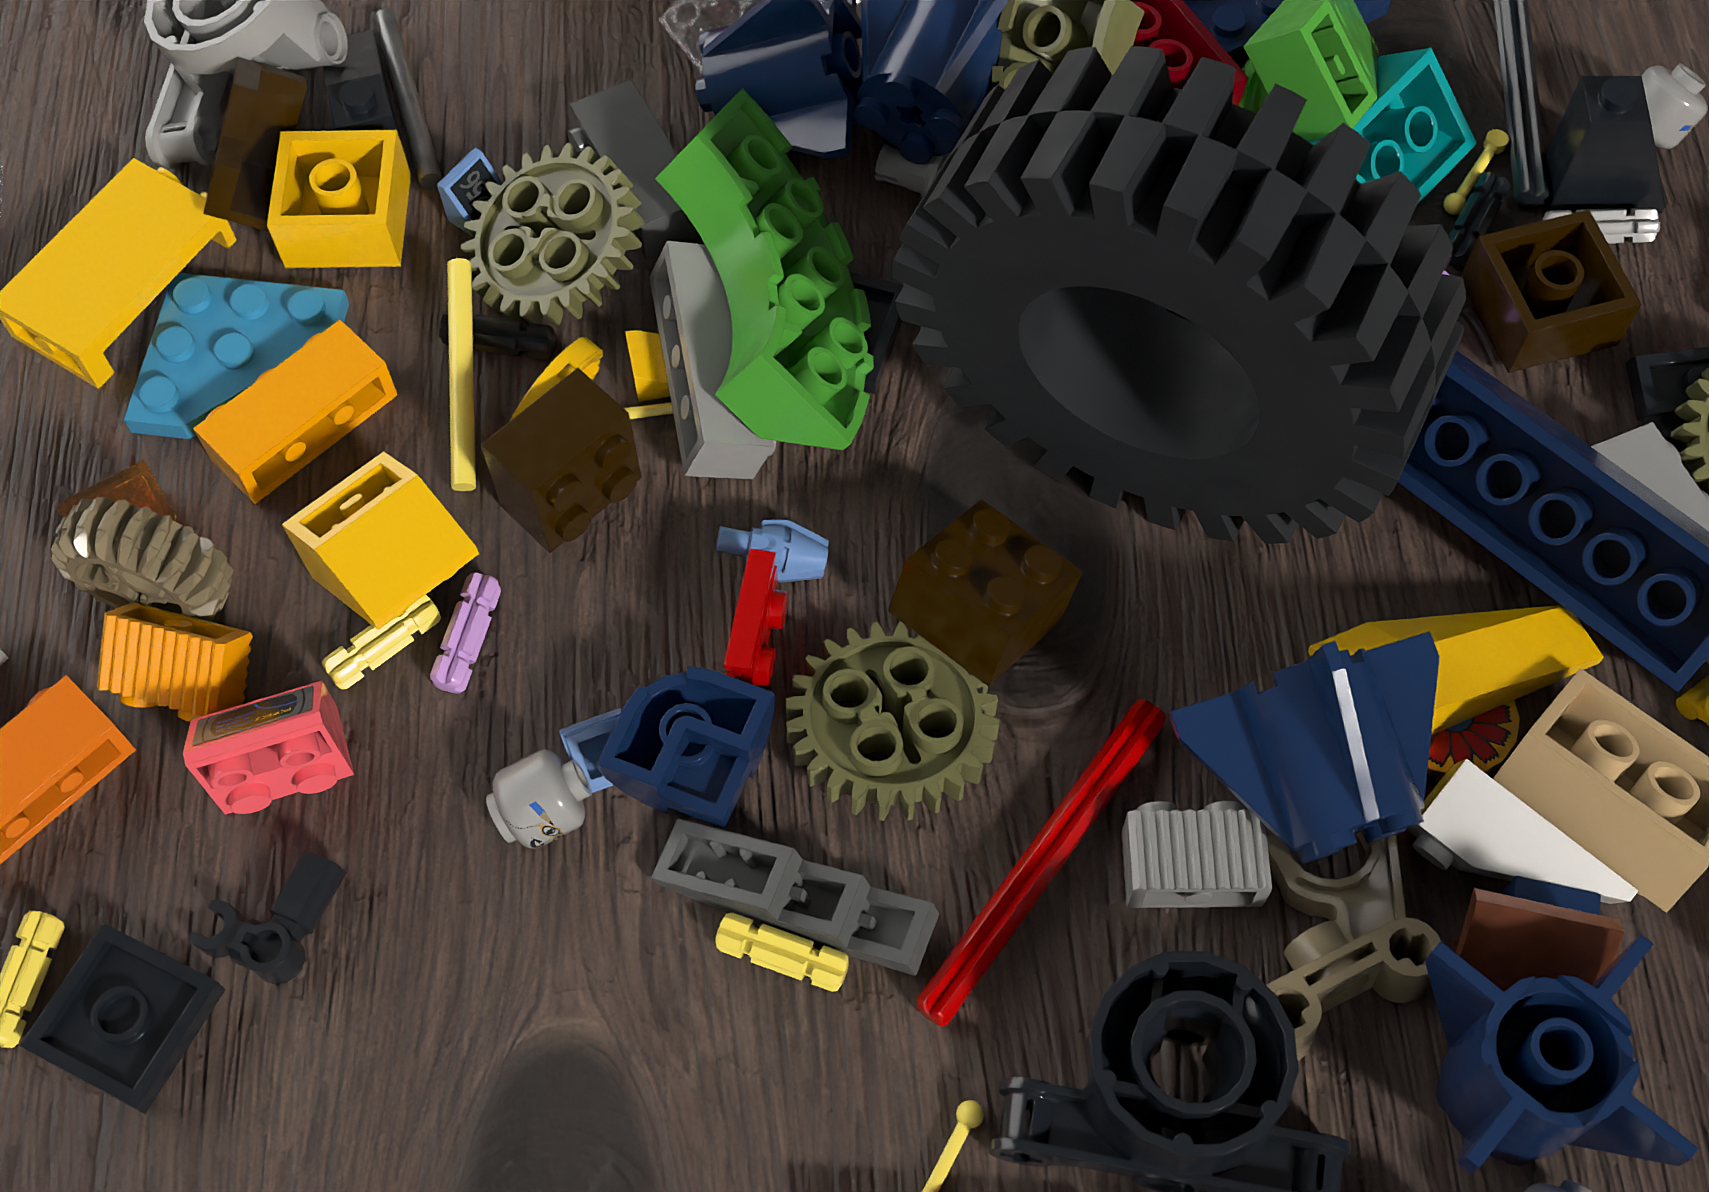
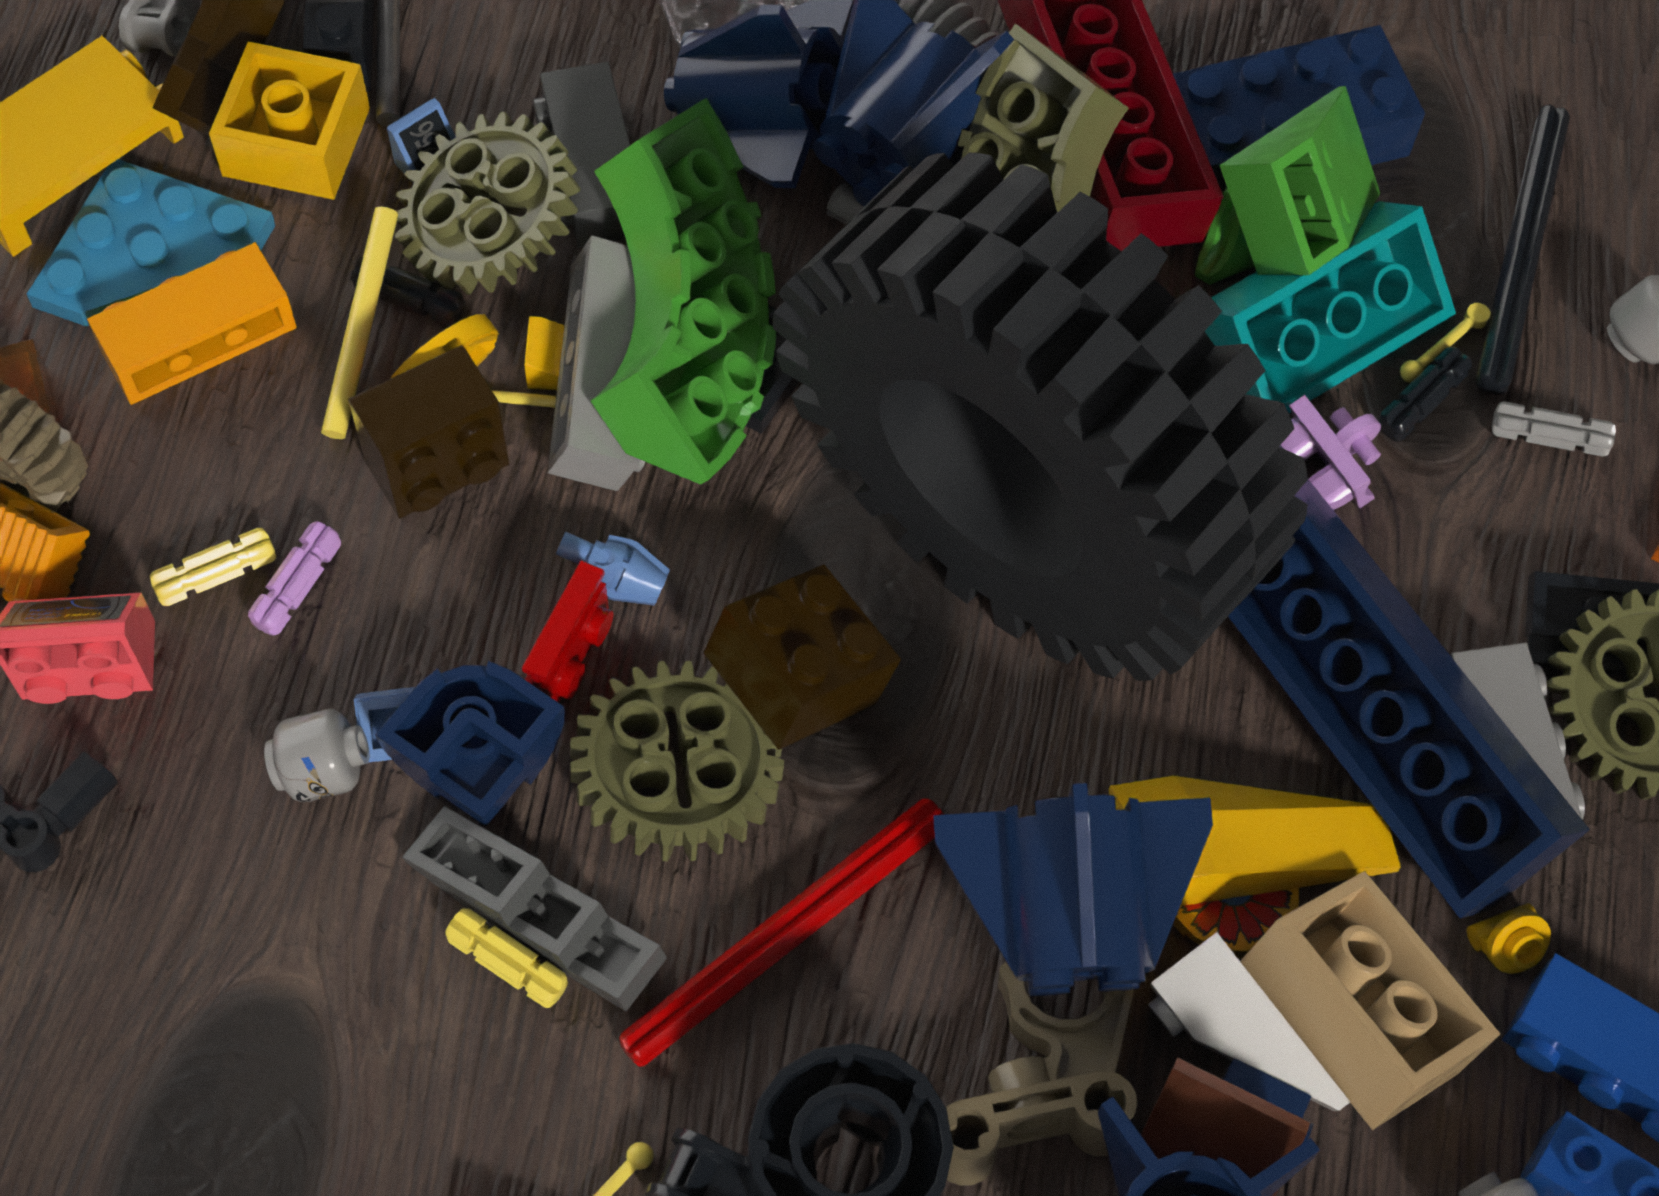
camera: 10 degrees right, 0 degrees up
(379, 540) = (234, 469): yellow slope -> none
(1195, 857) = (928, 964): light grey brick -> none
(1549, 290) = (1469, 484): dark brown brick -> none
(1605, 149) = (1577, 353): black slope -> none

